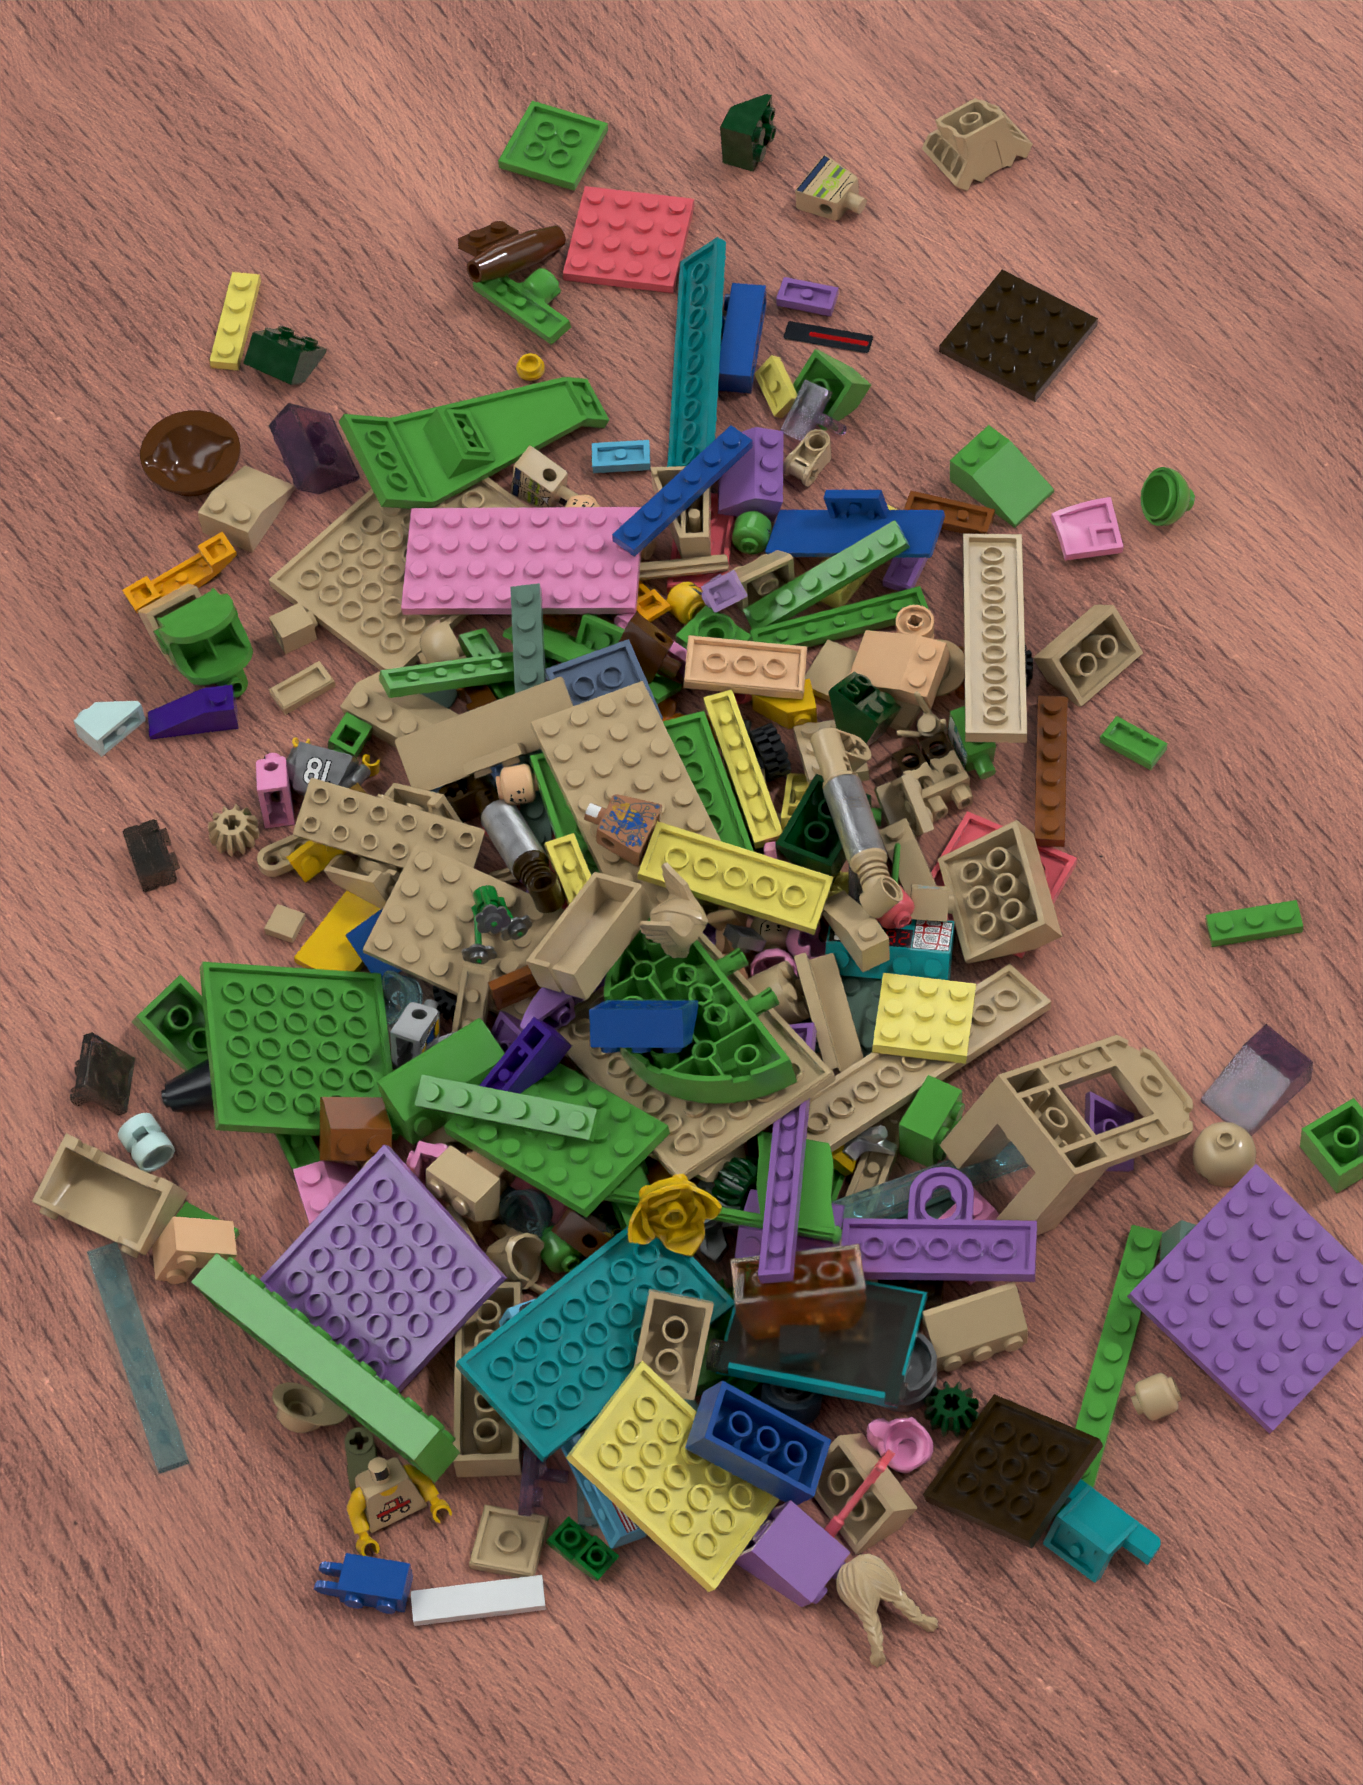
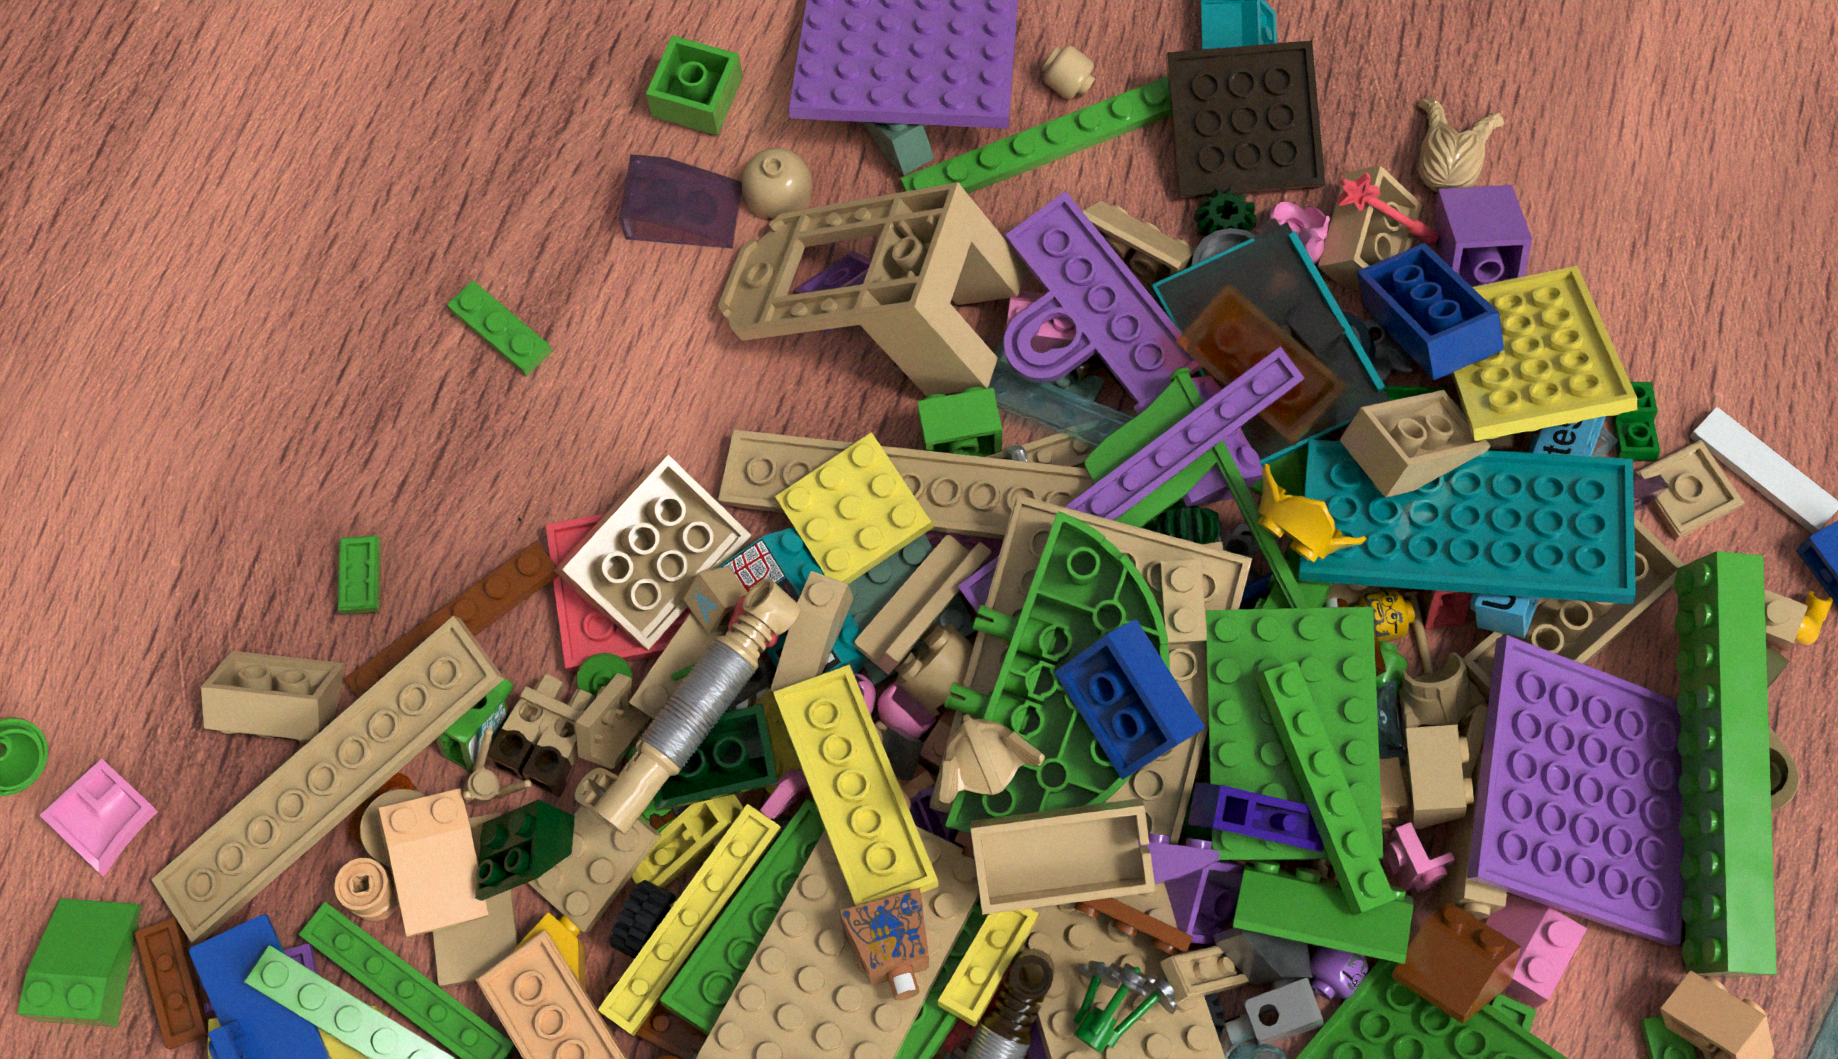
camera: 130 degrees left, 10 degrees up
(686, 1120) = (1183, 601): none -> tan plate
(944, 829) = (600, 670): none -> bright green piece

